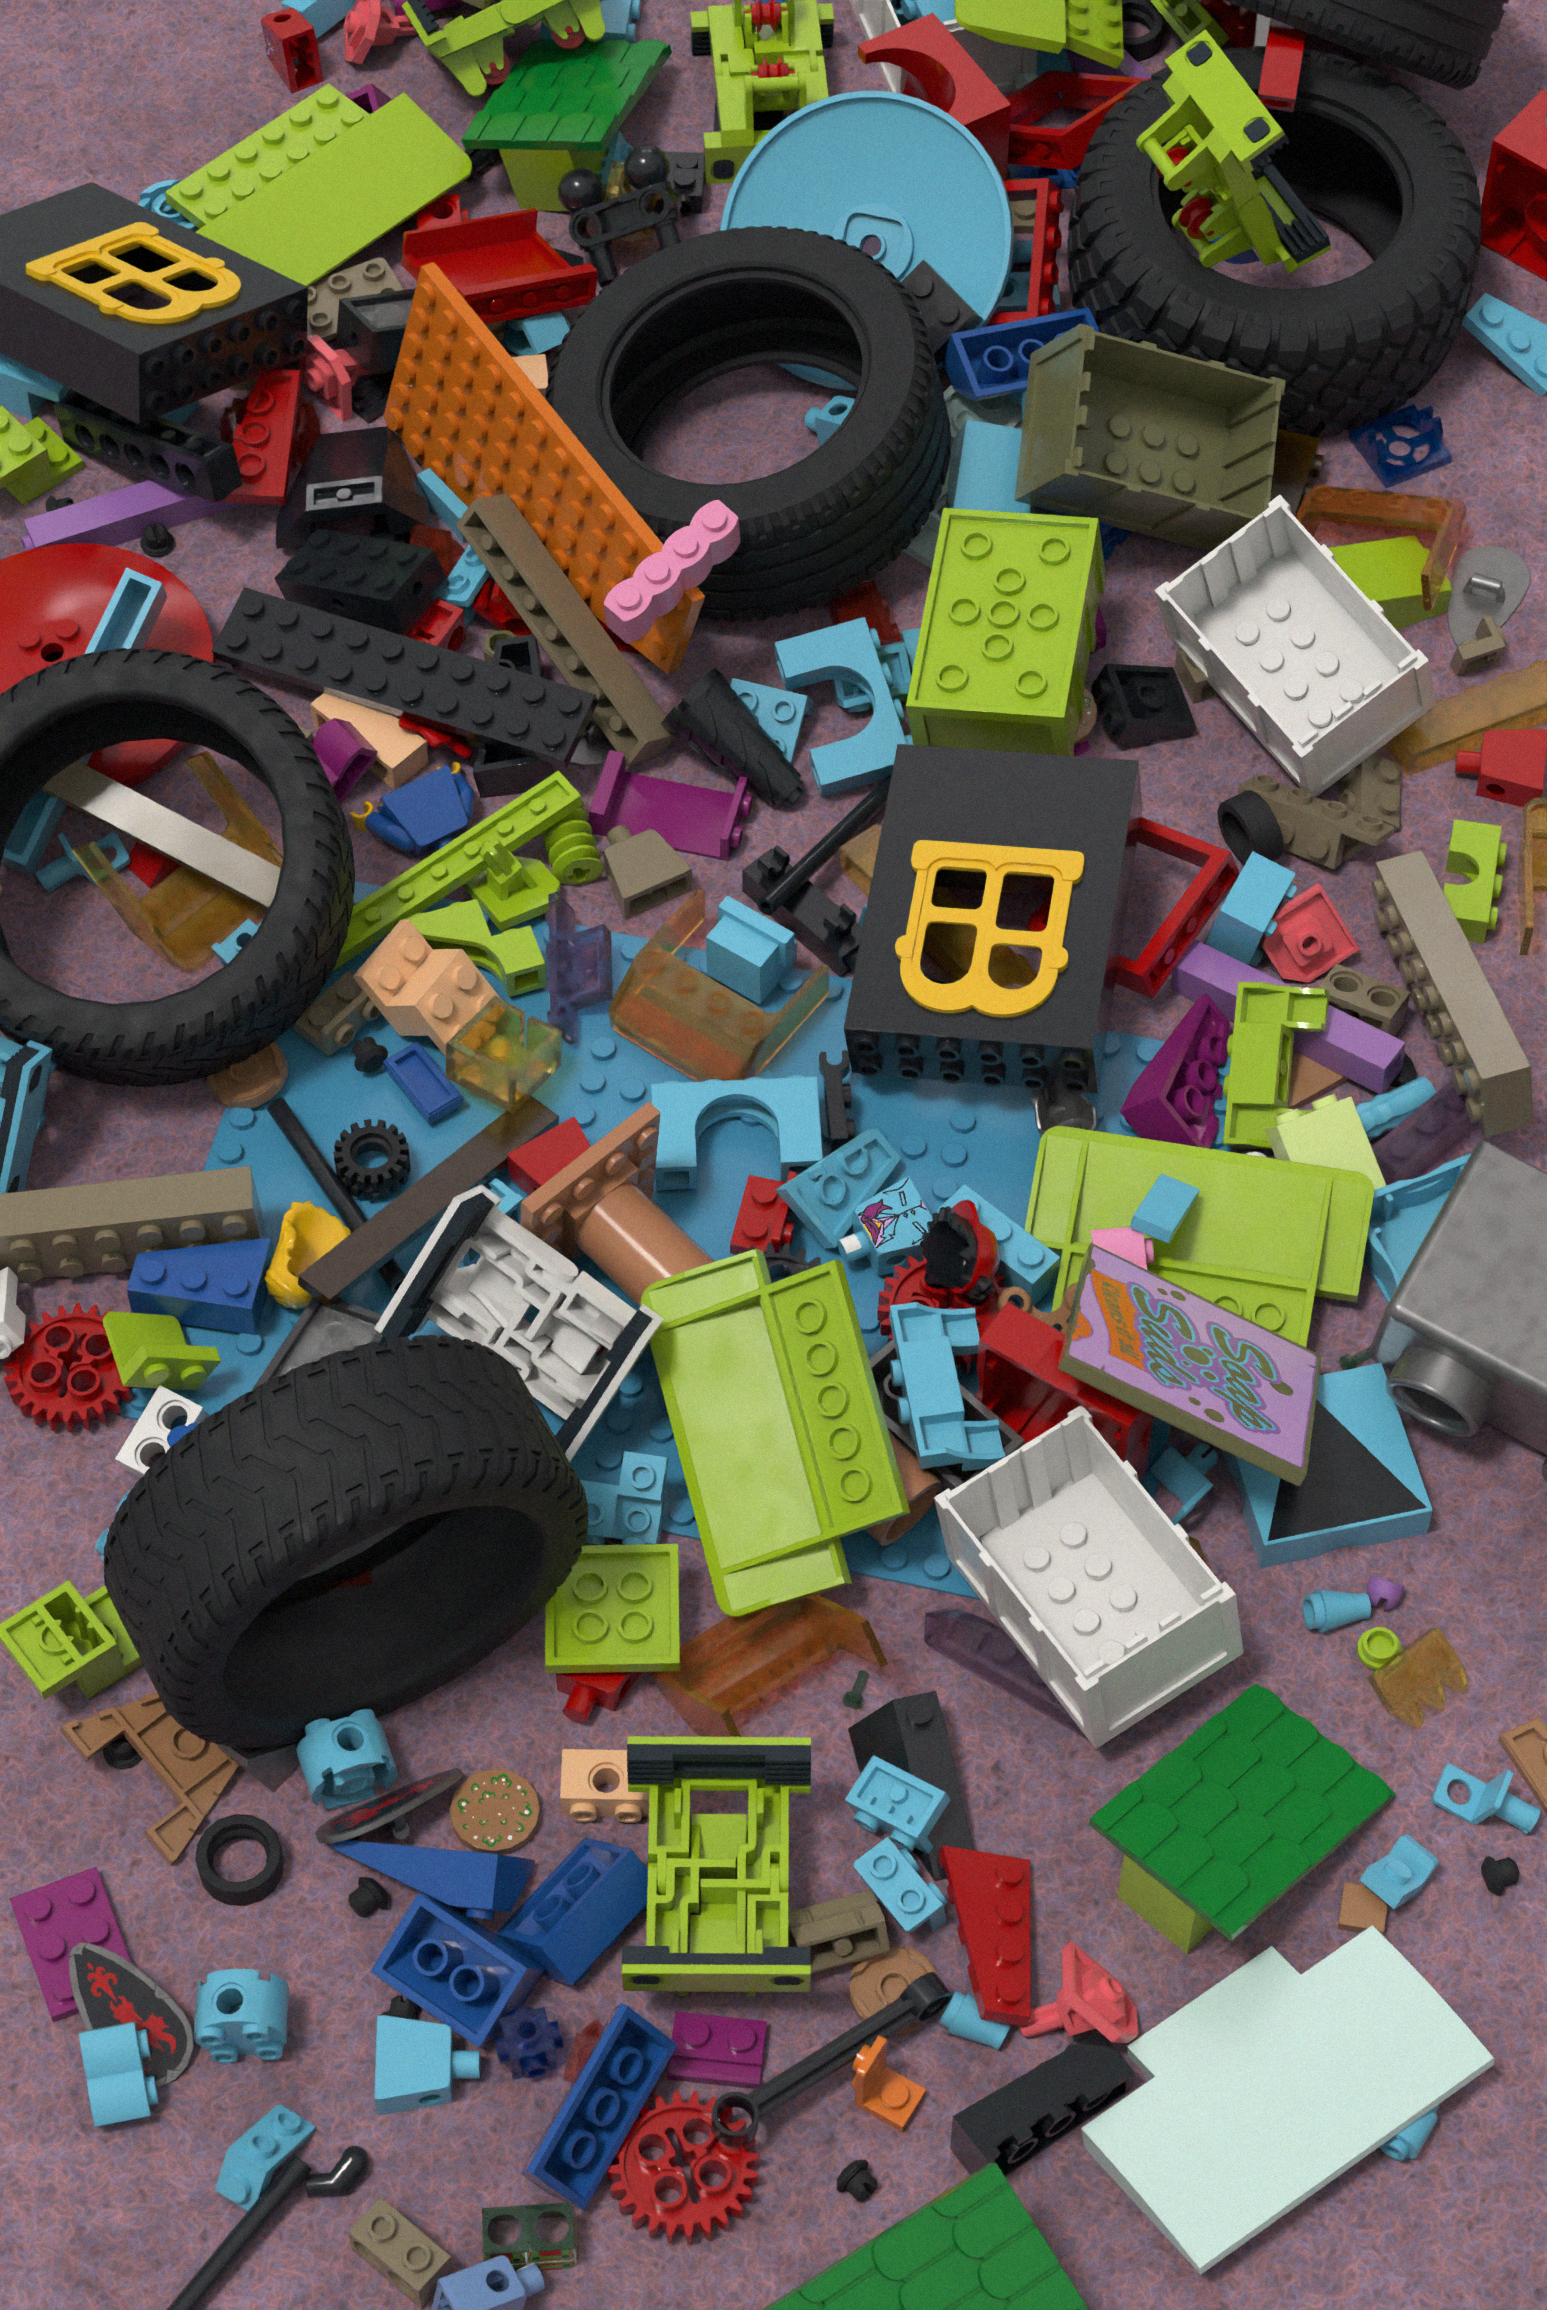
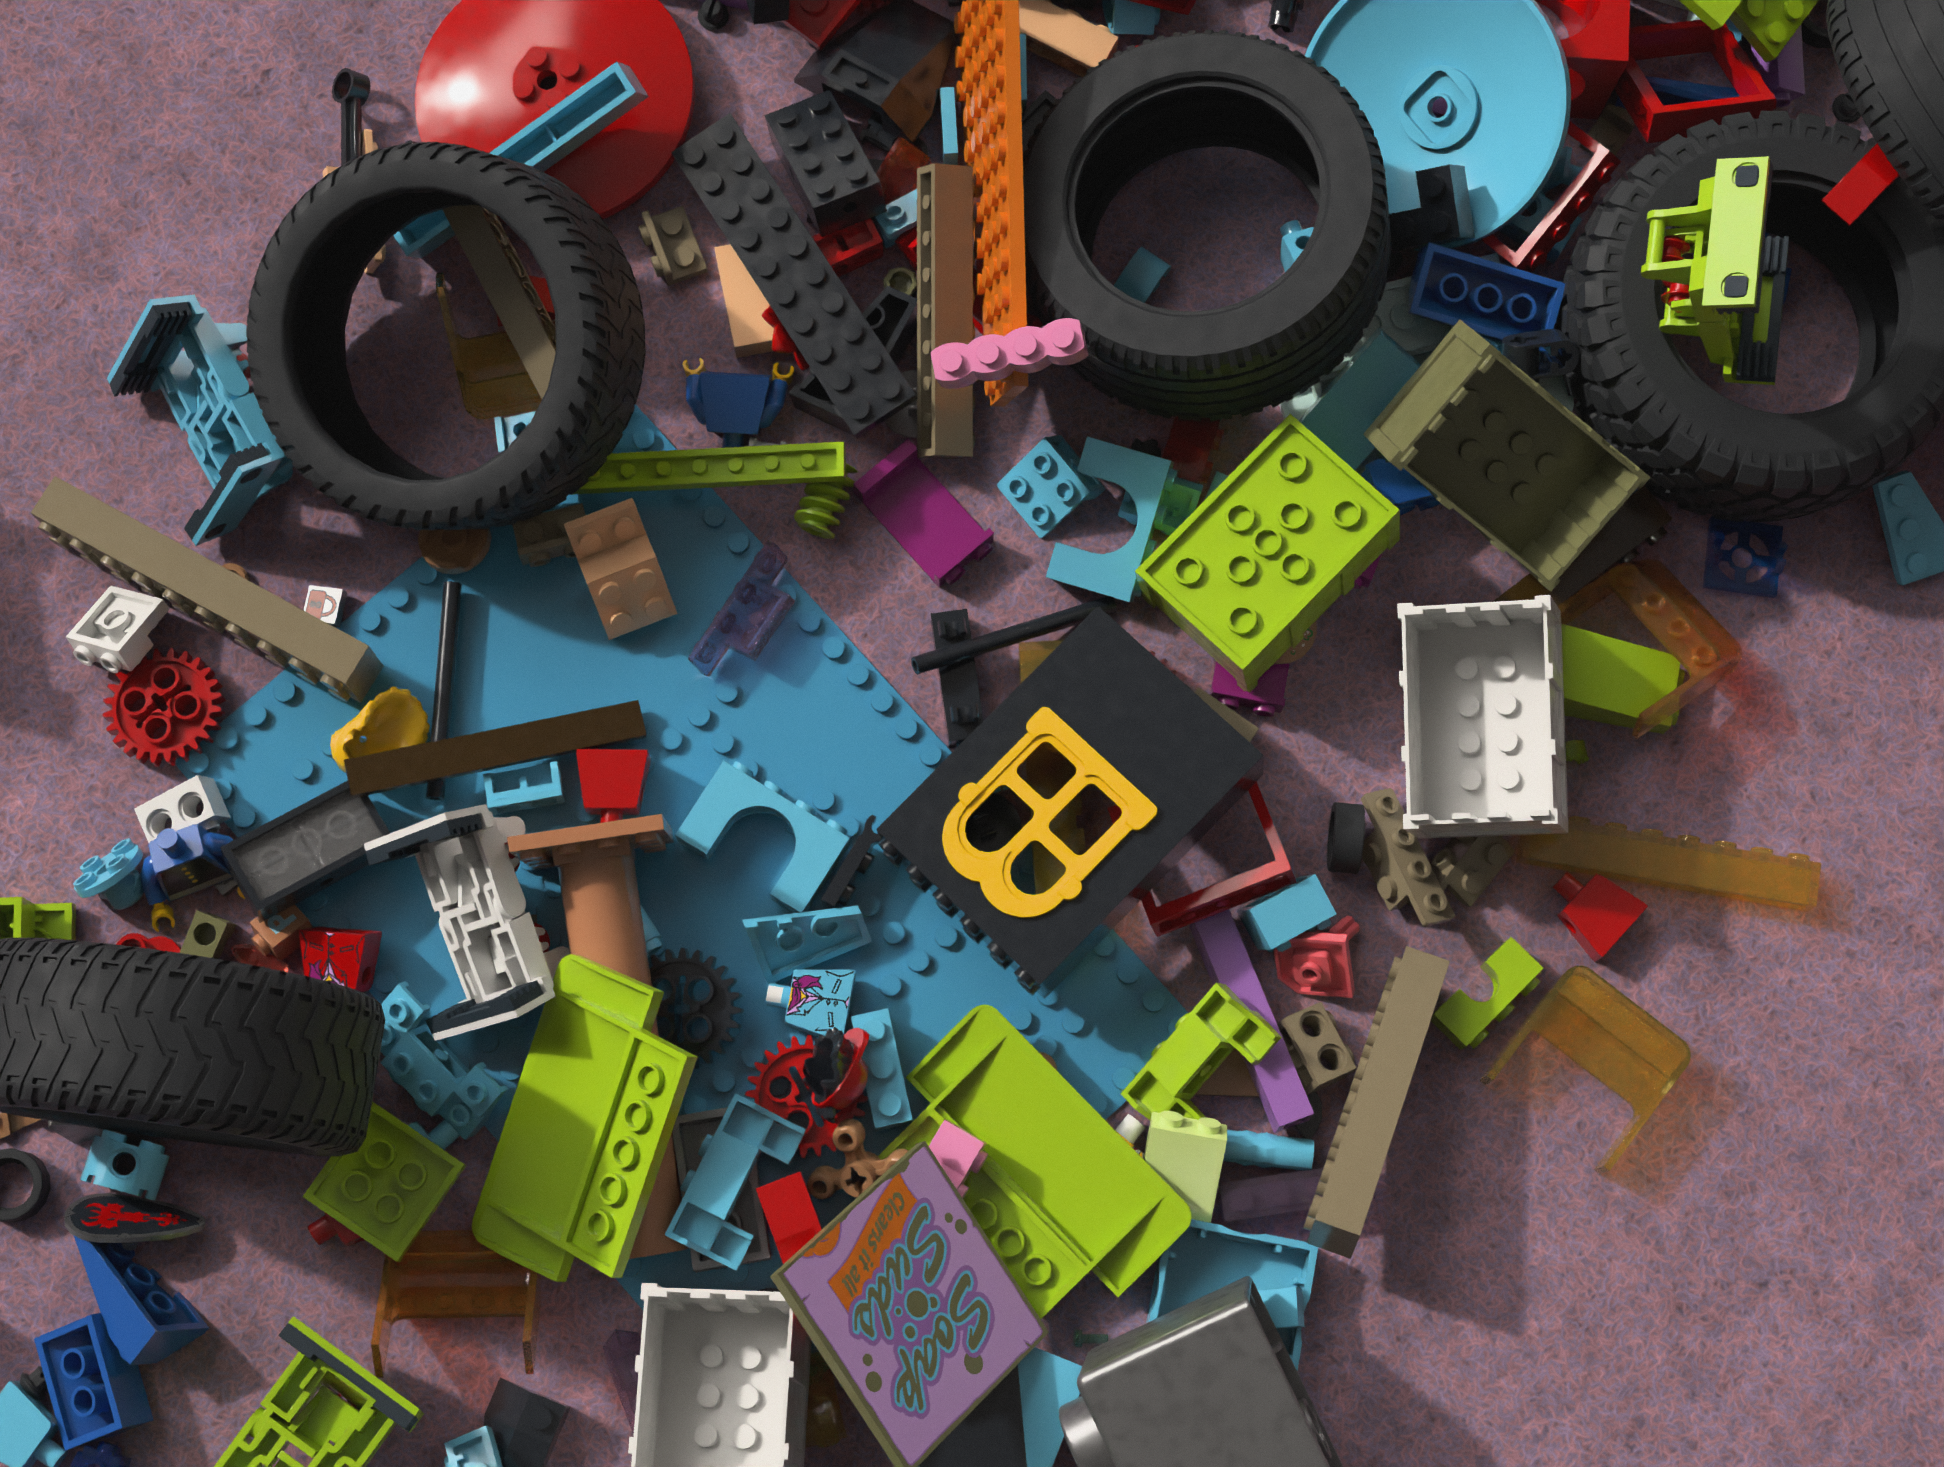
camera: 30 degrees right, 20 degrees up
(69, 866) = (456, 270): medium azure bracket -> none
(155, 1353) = (217, 740): lime bracket -> none
(204, 1284) = (292, 707): blue wedge -> none
(343, 755) = (694, 312): magenta brick -> none
(367, 1897) = (75, 1275): black piece -> none
(369, 1055) = (547, 586): black piece -> none
(372, 1139) = (478, 659): black tyre -> none
(423, 1082) = (572, 636): blue tile -> none
(491, 1058) = (630, 660): clear yellow piece -> none
(495, 1812) = (210, 1269): medium nougat tile -> none
(509, 955) = (687, 530): lime arch -> none
(511, 886) = (755, 512): lime piece -> none
(579, 1909) = (206, 1389): blue slope -> none
(584, 1772) = (285, 1285): light nougat brick -> none
(643, 870) = (862, 557): dark tan torso -> none
(694, 1018) = (800, 720): clear orange windscreen -> none
(729, 736) = (1002, 481): black cone -> none
(748, 950) = (883, 690): medium azure plate -> none
(763, 1217) = (724, 929): red bracket -> none
(853, 1698) = (519, 1356): clear green piece -> none
(1062, 1109) = (1011, 998): flat silver hair -> none
(1141, 703) = (1352, 663): black plate -> none
(1164, 1208) = (1013, 1139): medium azure tile -> none
(1179, 1086) = (1116, 1028): magenta wedge -> none
(1480, 650) = (1650, 791): dark tan bracket -> none
(1485, 584) = (1706, 737): flat silver shield -> none

